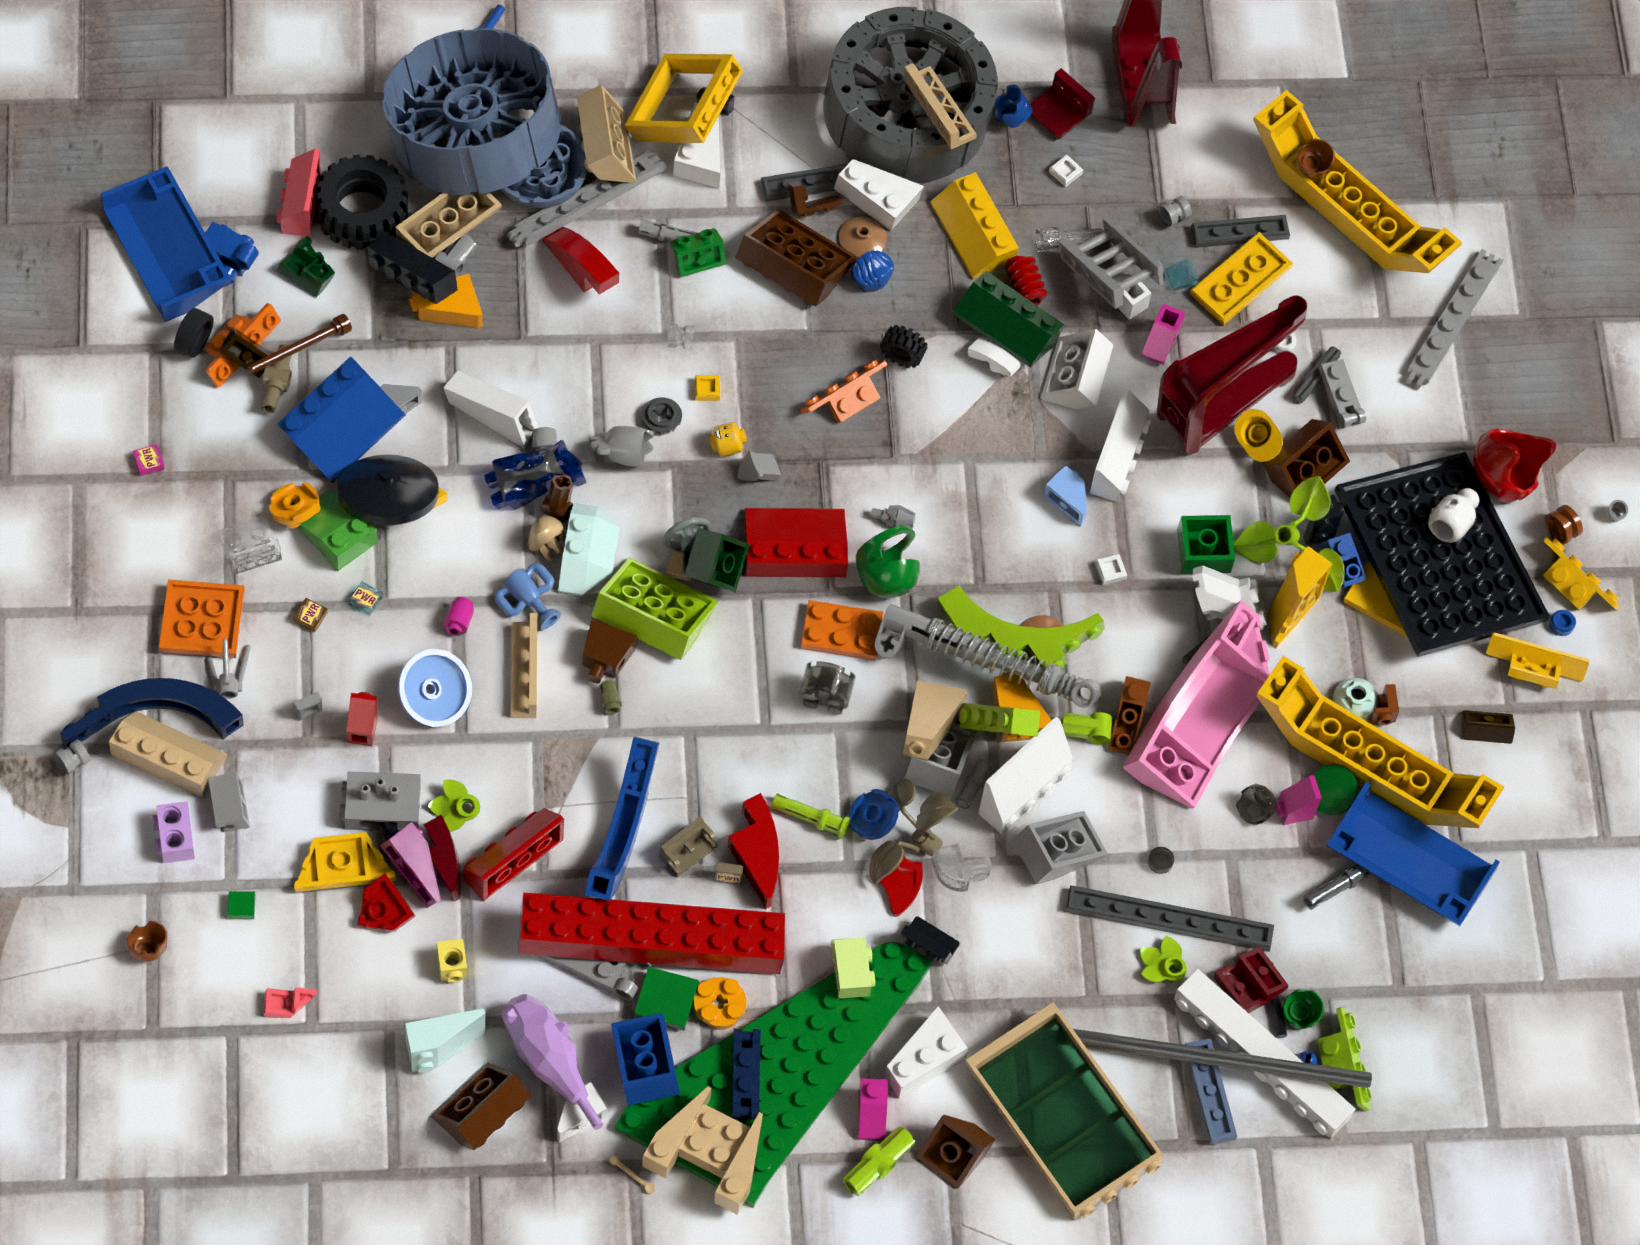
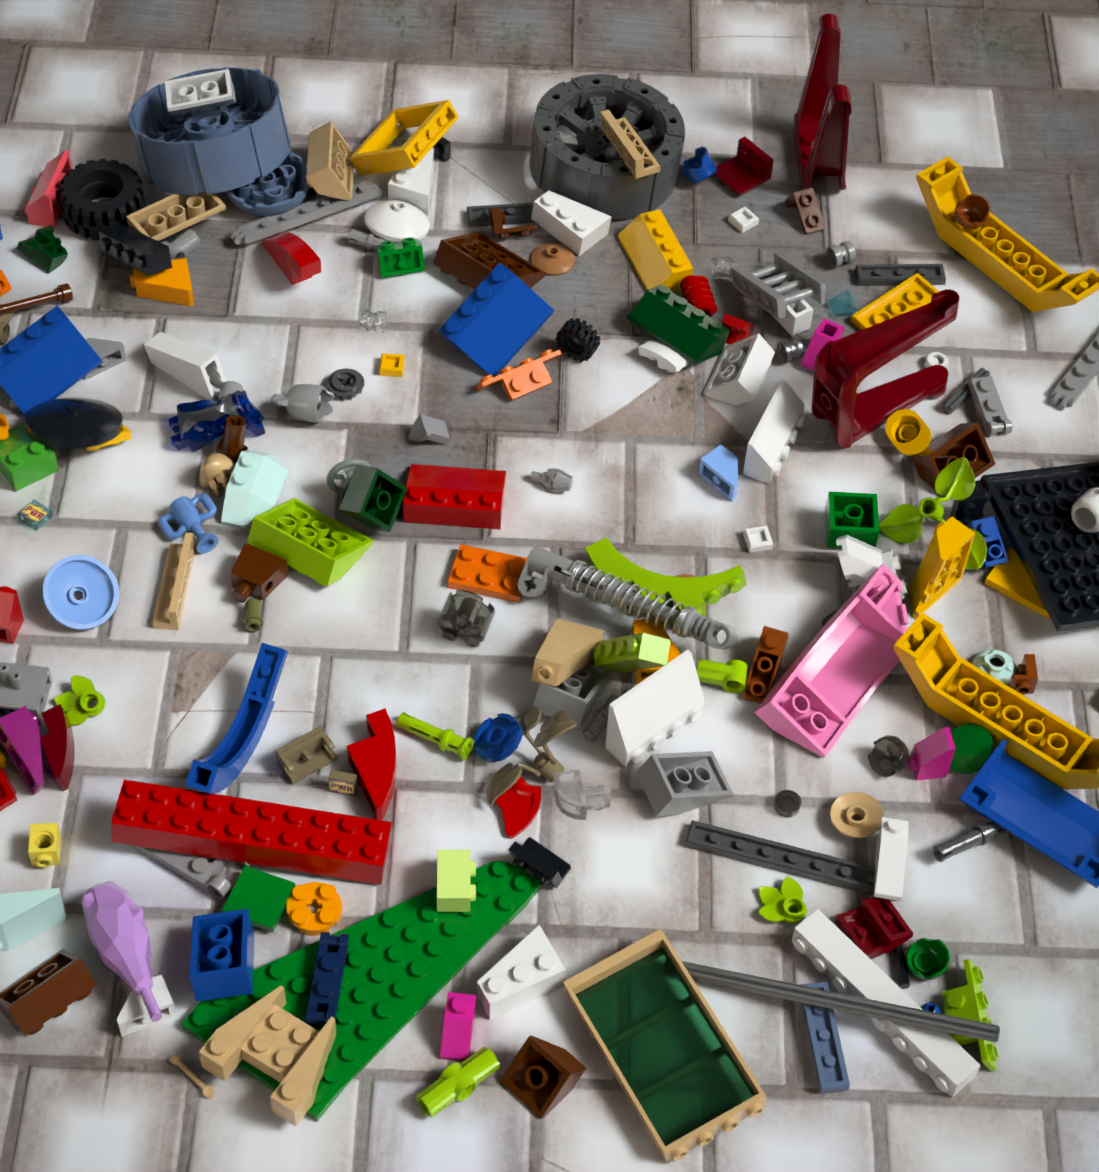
camera: 10 degrees right, 10 degrees down
(457, 69) = (199, 92): none -> white slope
(458, 616) = (120, 534): dark pink brick -> none
(514, 853) = (129, 748): red slope -> none
(675, 566) = (333, 509): tan tile -> none
(688, 204) = (396, 220): none -> white dish
(727, 439) = (403, 405): yellow head -> none
(816, 332) = (496, 320): none -> blue slope
(872, 270) = (557, 281): blue hair -> none
(885, 572) = (542, 524): green piece -> none
(1071, 315) = (738, 328): none -> red slope
(1129, 339) = (790, 349): none -> flat silver wheel
(1135, 155) = (808, 210): none -> reddish brown bracket
(1228, 858) = (857, 806): none -> tan dish
(1263, 912) = (890, 858): none -> white slope

